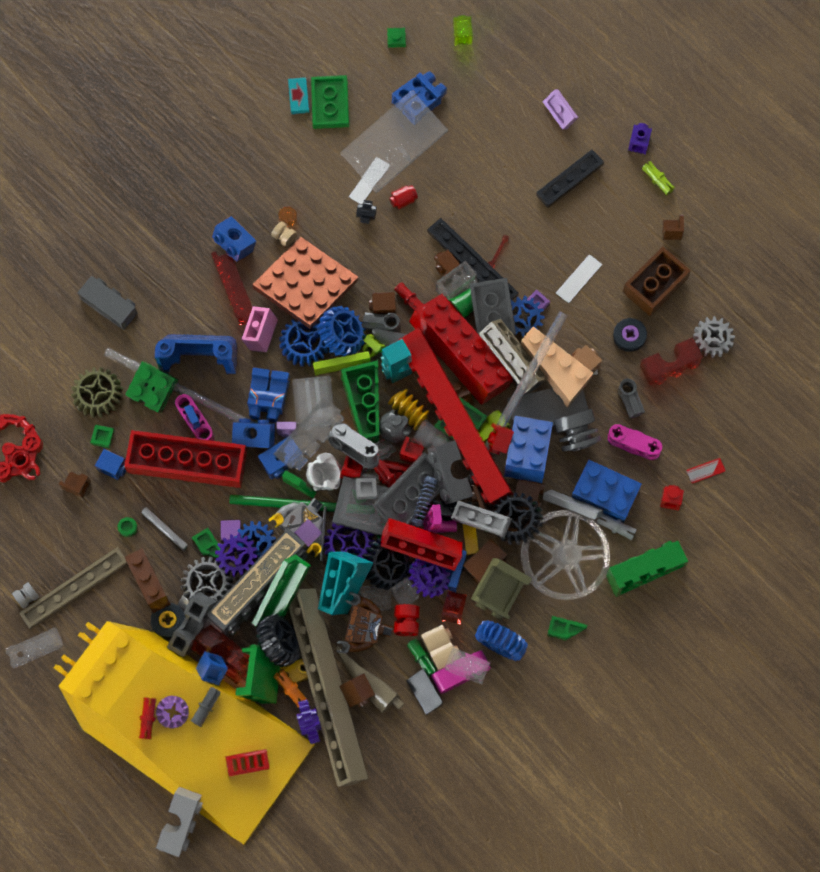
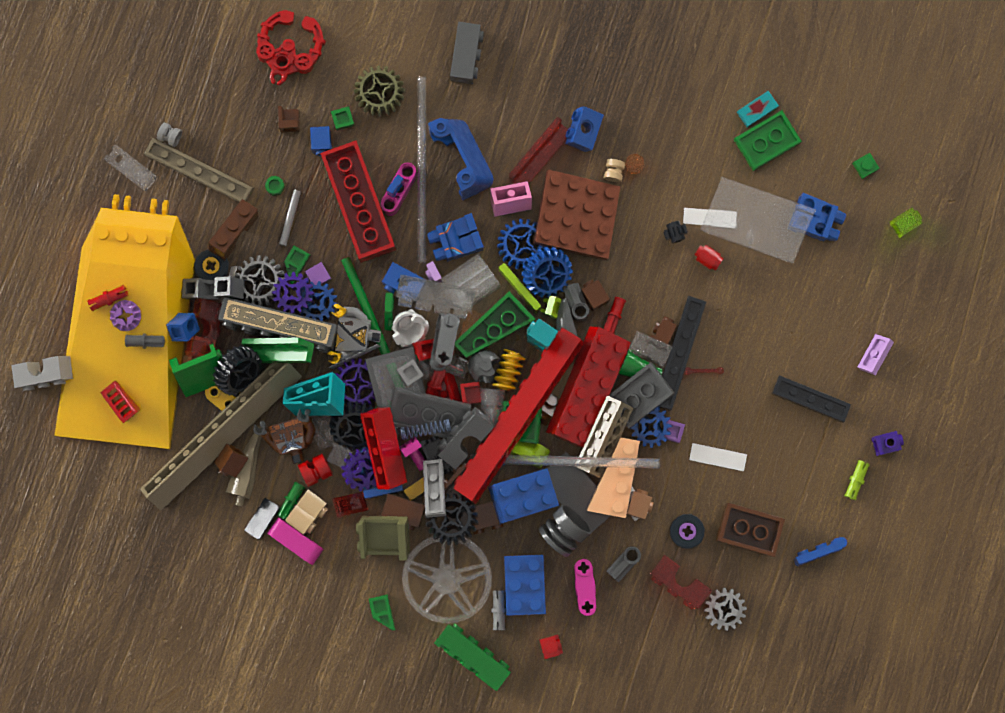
camera: 60 degrees right, 10 degrees up
(152, 387) = (408, 135): green piece -> none
(264, 437) = (403, 241): blue brick -> none
(290, 687) = (204, 402): orange pin -> none
(308, 532) = (344, 343): medium lavender tile -> none
(308, 721) = (181, 434): dark purple gear -> none
(467, 665) = (297, 544): clear brick -> none
(499, 439) = (517, 466): red brick -> none
(501, 640) = (338, 562): blue gear -> none
(573, 504) = (495, 554): light grey tile -> none
(673, 229) = (813, 519): reddish brown panel -> none
(703, 235) = (821, 551): none -> blue hinge
(705, 470) = (595, 664): sticker -> none

